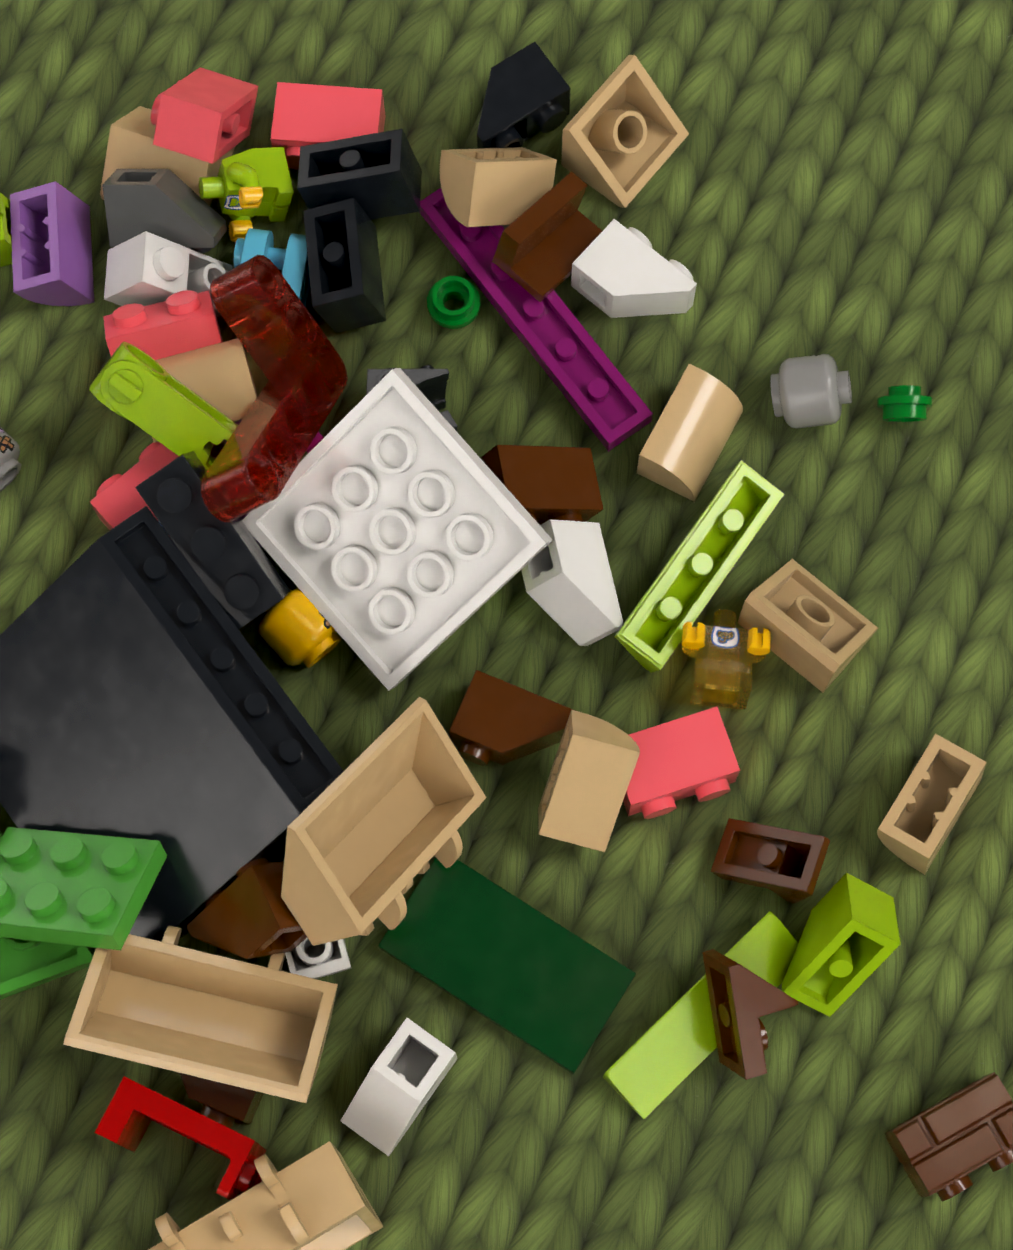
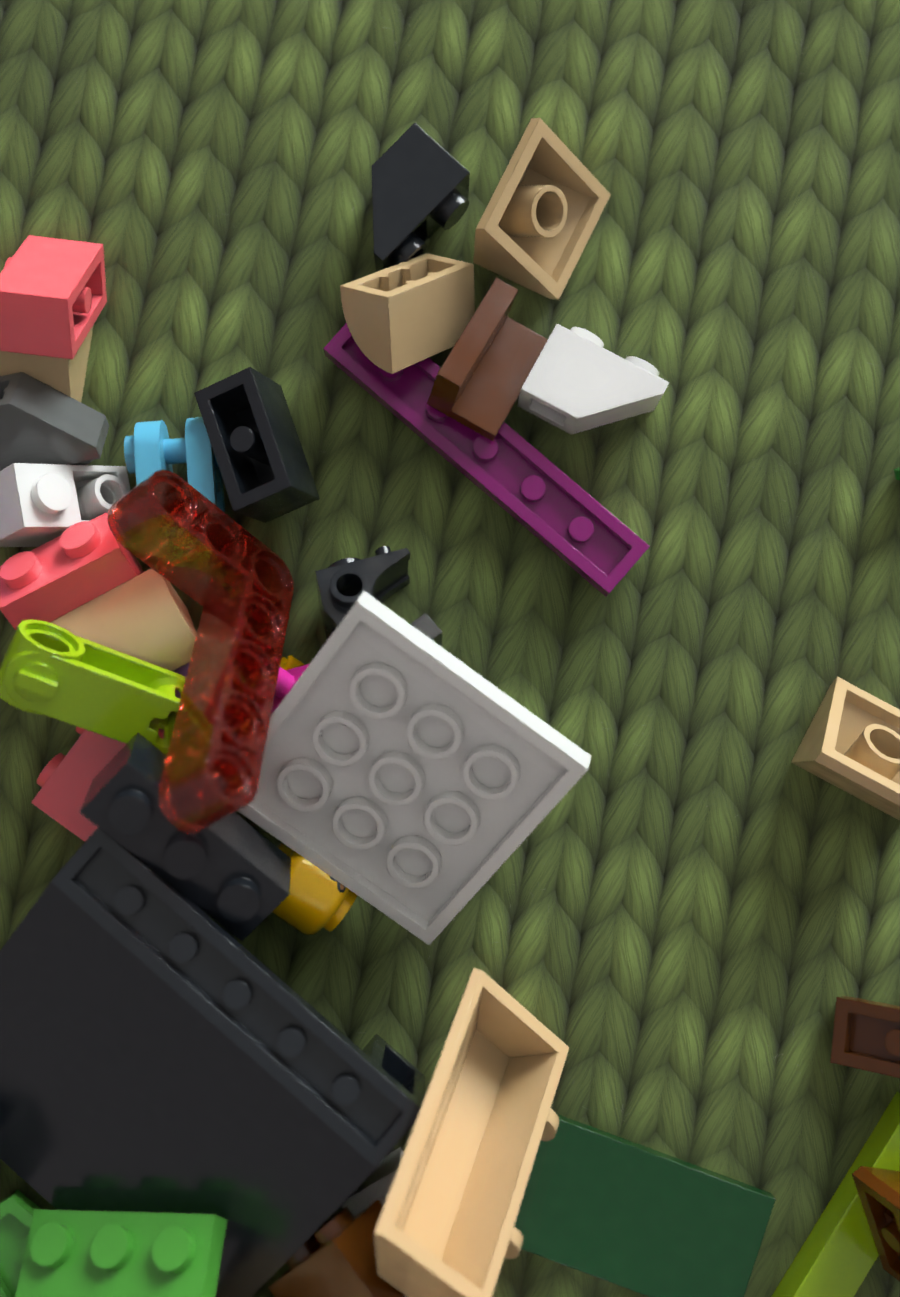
camera: 20 degrees left, 10 degrees up
(251, 186) = (123, 369): lime piece -> none
(323, 114) = (196, 277): coral brick -> none
(370, 167) = (256, 326): black brick -> none
(453, 288) = (390, 439): green plate -> none
(505, 722) = (569, 948): reddish brown slope -> none
(548, 480) = (551, 665): reddish brown brick -> none
(575, 581) = (621, 774): white slope -> none
(587, 782) = (679, 1006): tan brick -> none
(679, 762) = (765, 952): coral brick -> none
(690, 433) = (693, 557): tan brick -> none
(698, 566) = (744, 718): lime slope -> none
(723, 660) = (794, 818): clear yellow piece -> none
(810, 391) = (820, 479): light grey head -> none

